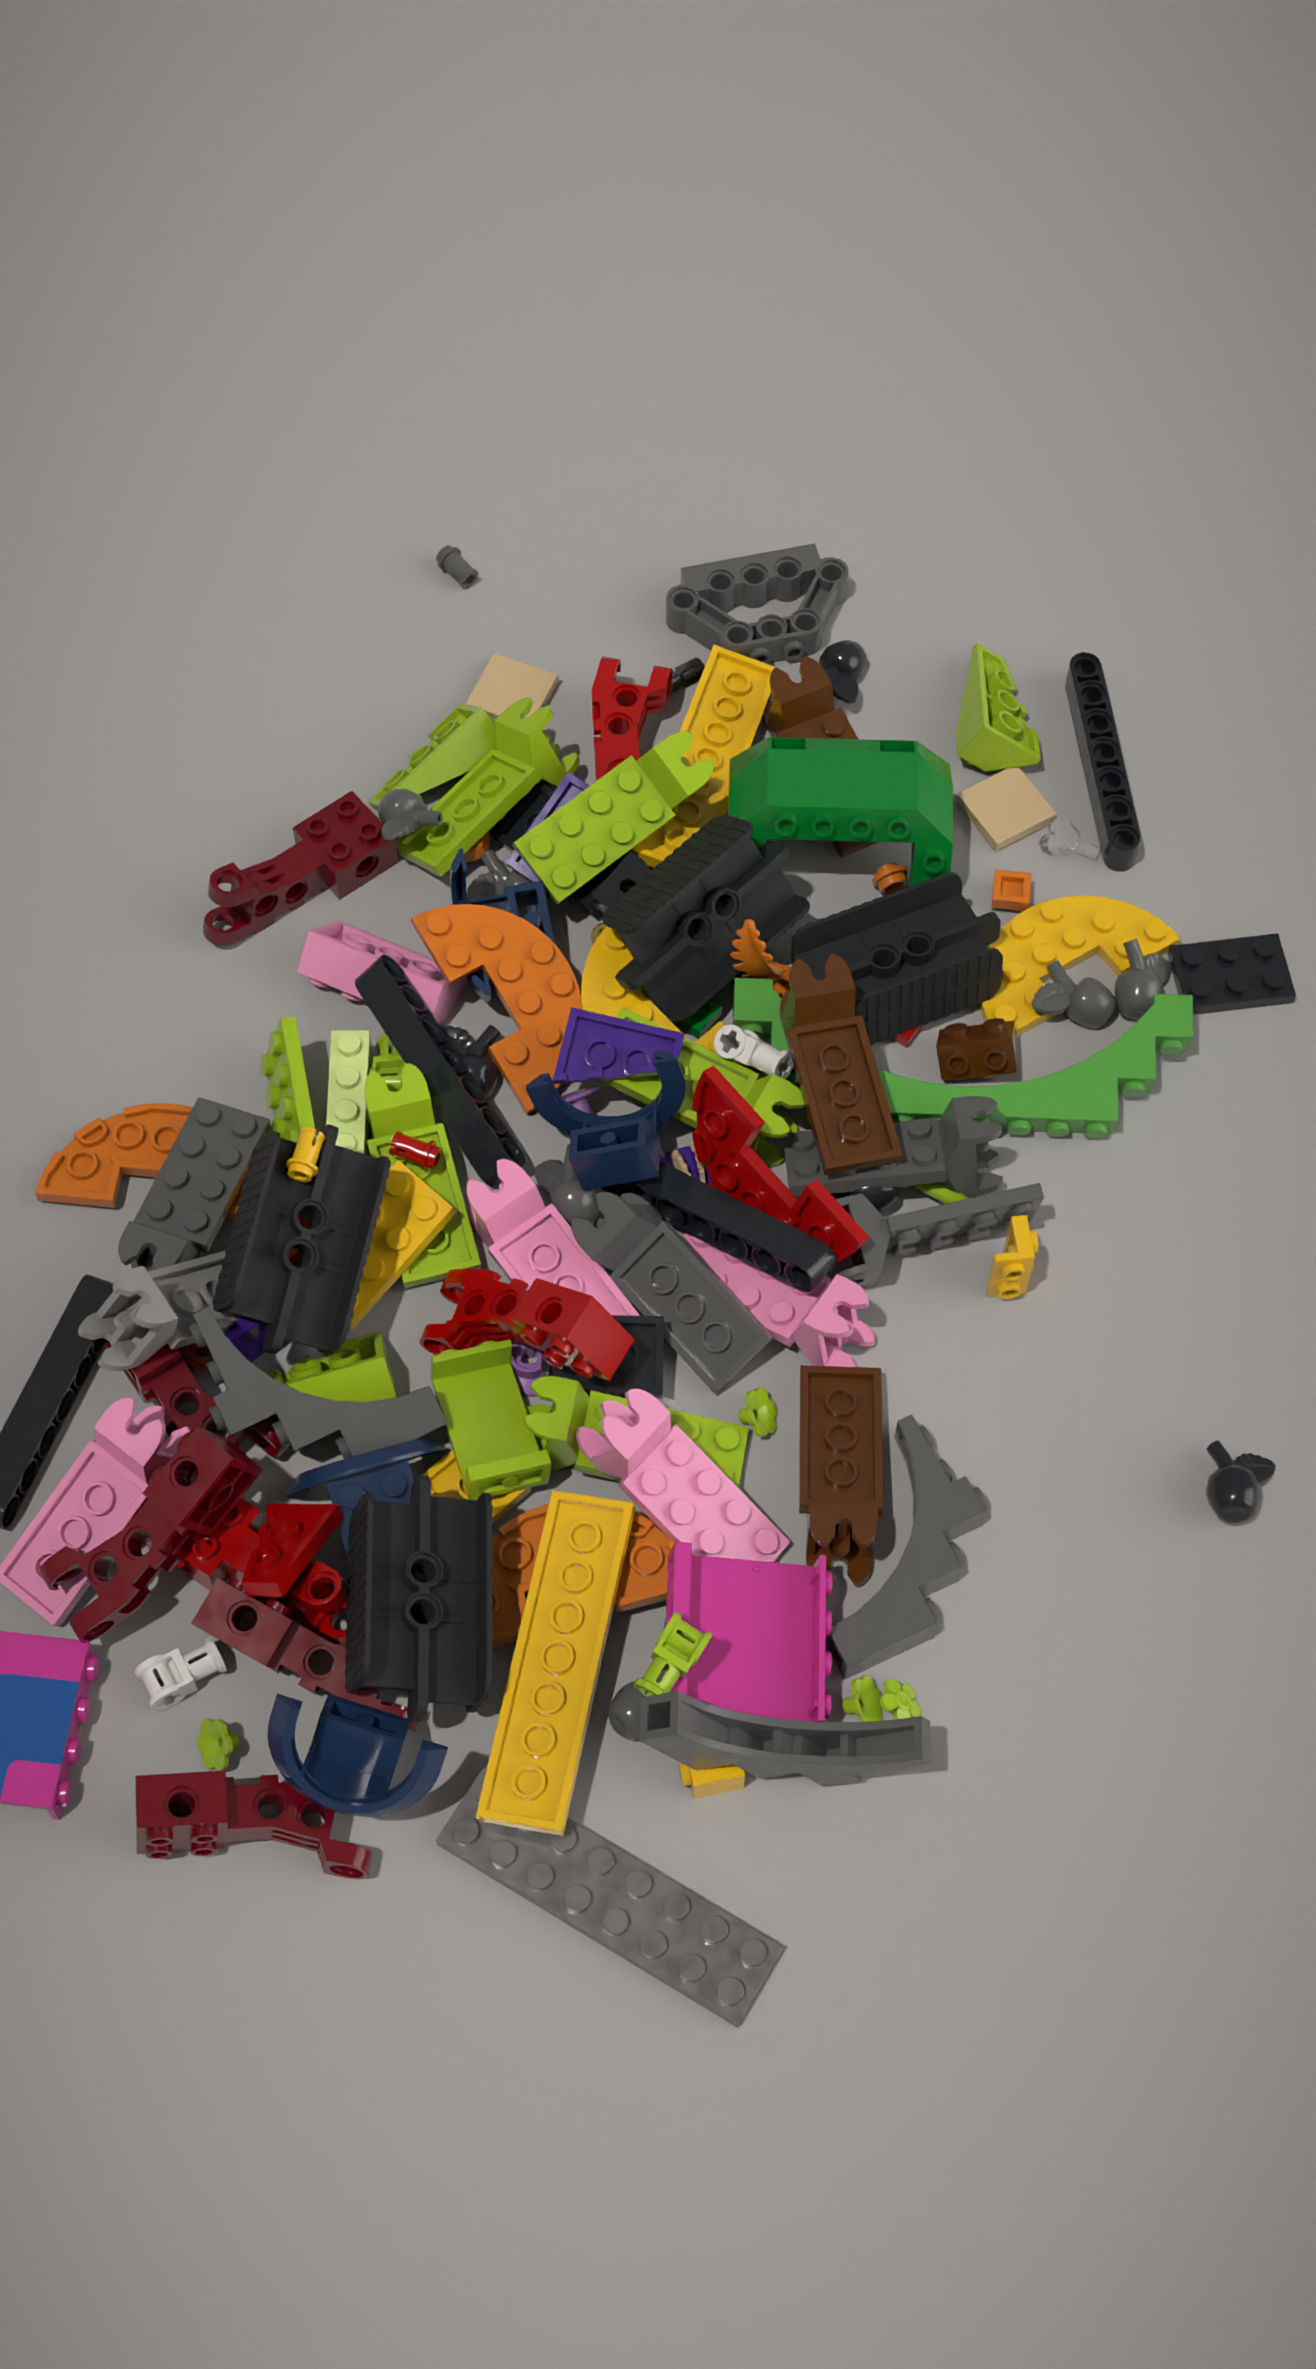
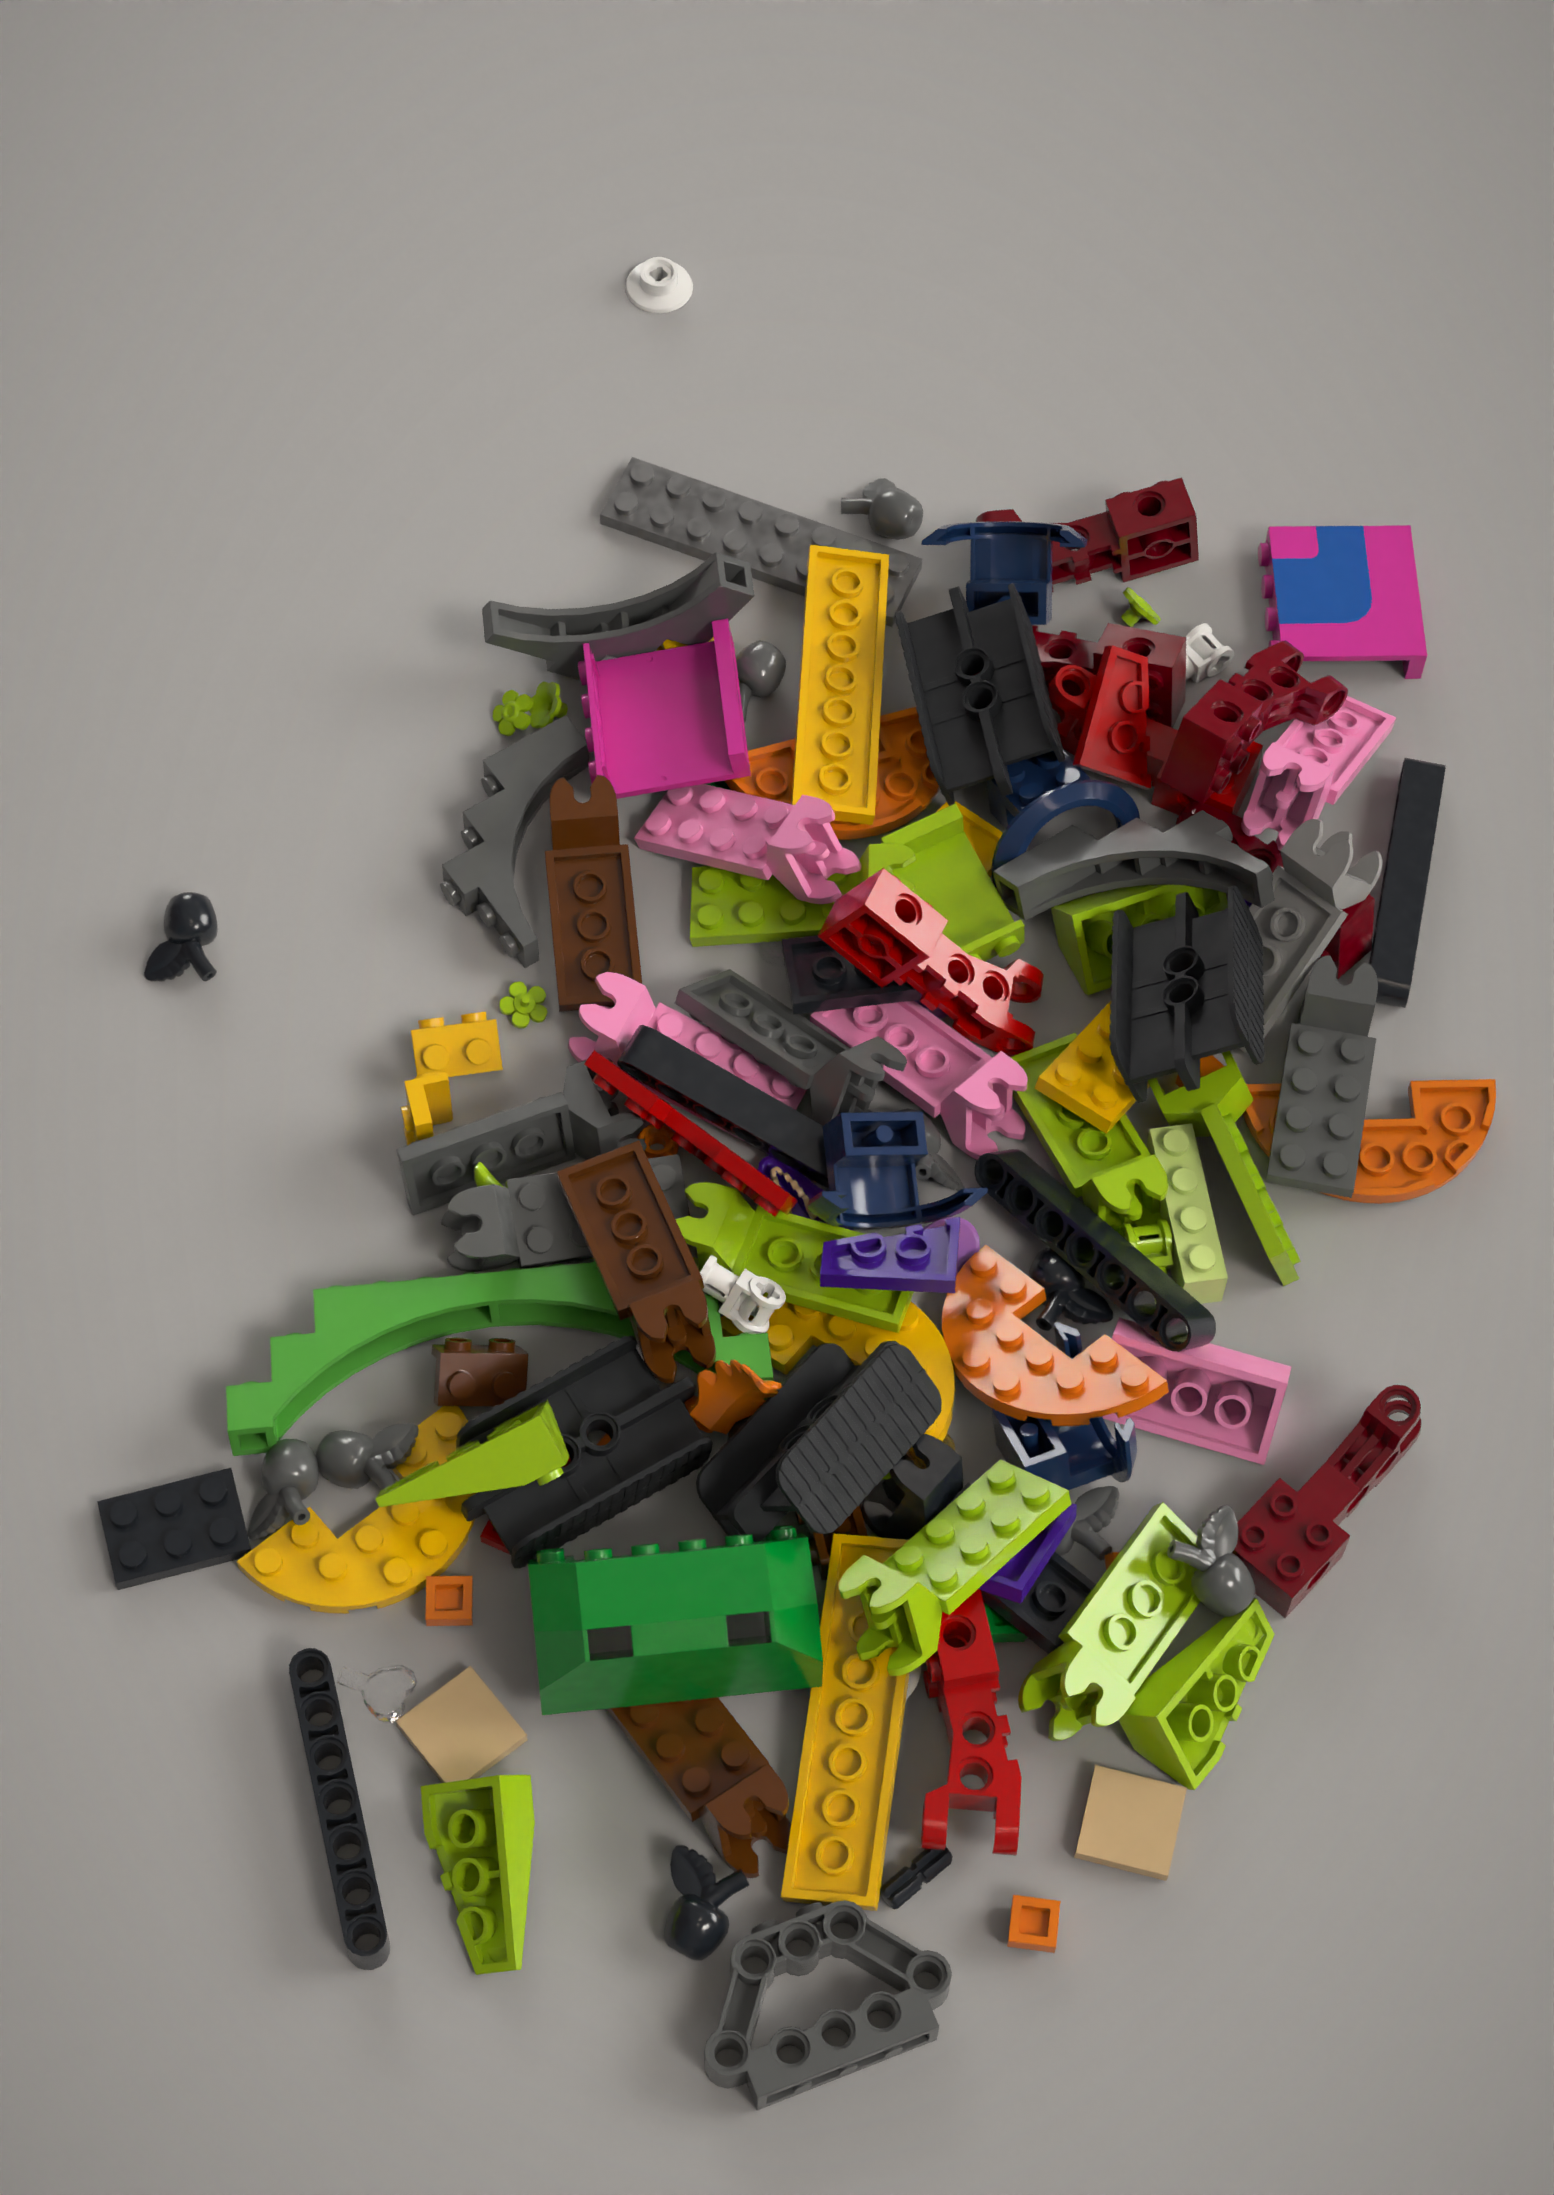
camera: 170 degrees right, 0 degrees up
(303, 1163) = (1201, 1030): yellow pin -> none
(415, 1151) = (1095, 1142): red pin -> none
(450, 559) = (1253, 2019): dark grey pin -> none
(455, 1898) = (889, 509): none -> dark grey piece
(598, 635) = (1033, 1923): none -> orange plate
(675, 1652) = (730, 645): lime connector -> none
(688, 2324) = (655, 295): none -> white piece
(759, 1412) = (680, 950): lime plant -> none
(913, 1388) = (524, 1005): none -> lime plant
(965, 922) = (514, 1456): none -> lime wedge
(980, 1349) = (458, 1047): none -> yellow bracket

